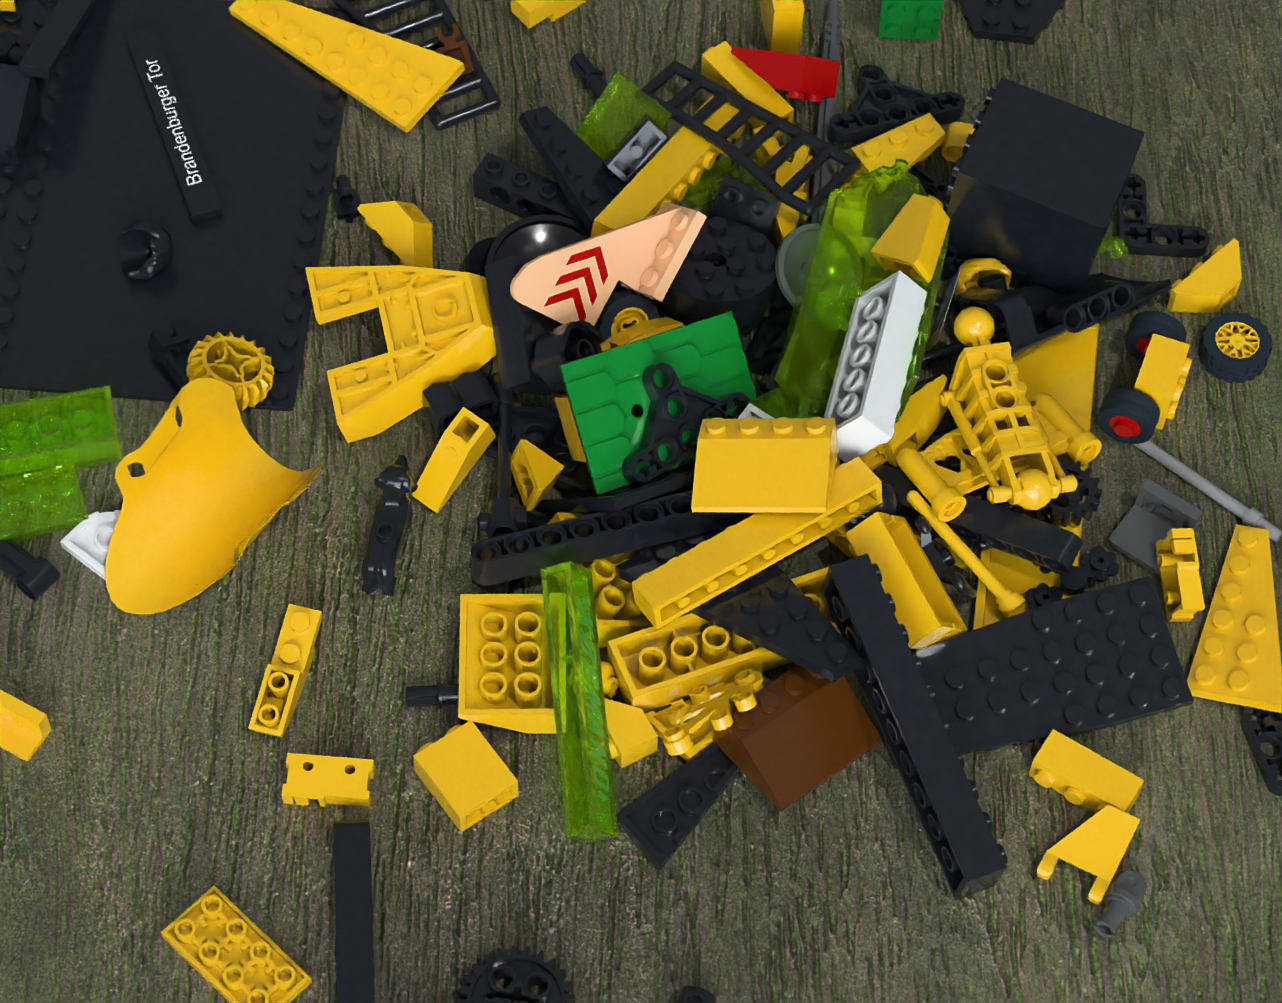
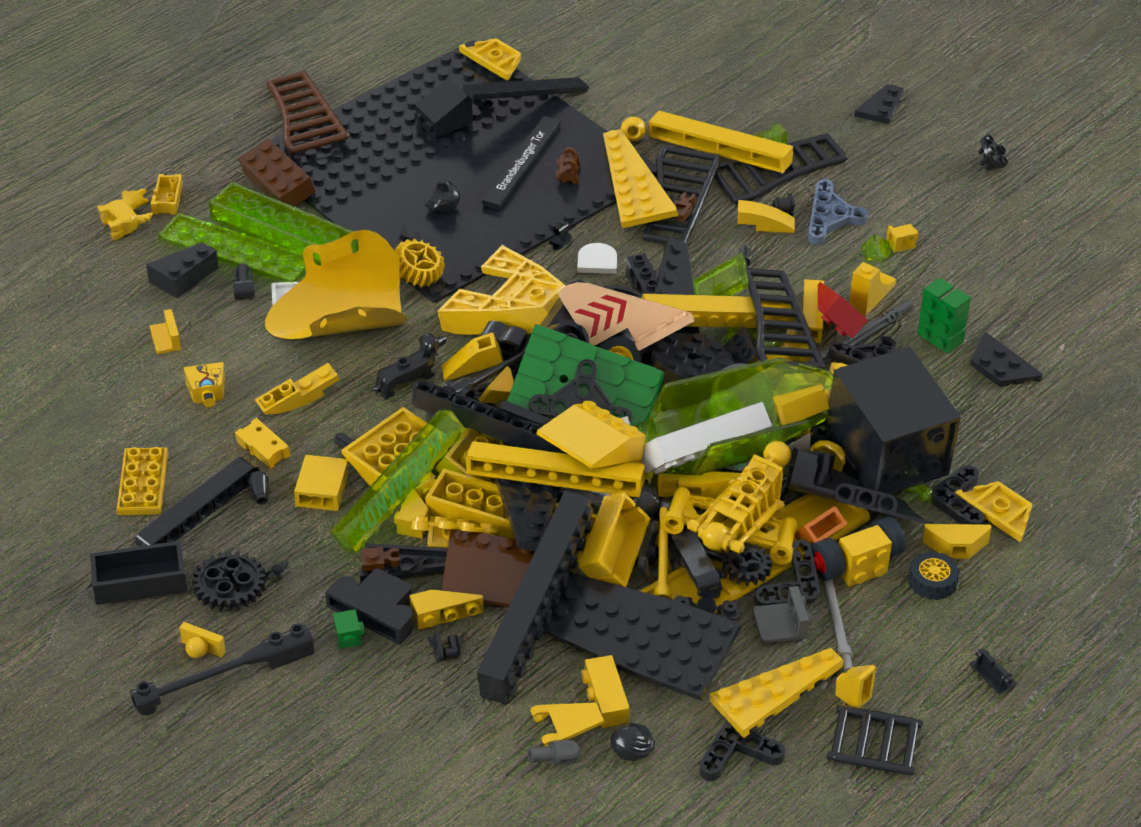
camera: 45 degrees right, 15 degrees down
(156, 755) = (206, 383): none -> yellow torso
(247, 88) = (568, 166): none -> reddish brown piece
(397, 845) = (259, 485): none -> black cone
(402, 230) = (568, 262): yellow slope -> none
(426, 191) = (597, 259): none -> white tile
(551, 938) = (277, 569): none -> black plant
(636, 149) = (714, 285): black brick -> none
(658, 827) = (376, 559): none -> reddish brown plate
(720, 885) = (379, 603): none -> black brick
(728, 946) = (348, 629): none -> green brick
(790, 827) = (439, 607): none -> yellow slope
(853, 883) = (447, 652): none -> black piece
(1079, 380) = (822, 526): none -> orange brick
(1126, 476) = (800, 579): none -> black beam
(1176, 816) = (632, 741): none -> black hair
(1180, 575) = (765, 641): yellow piece -> none
(1207, 203) = (1000, 507): none -> yellow wing

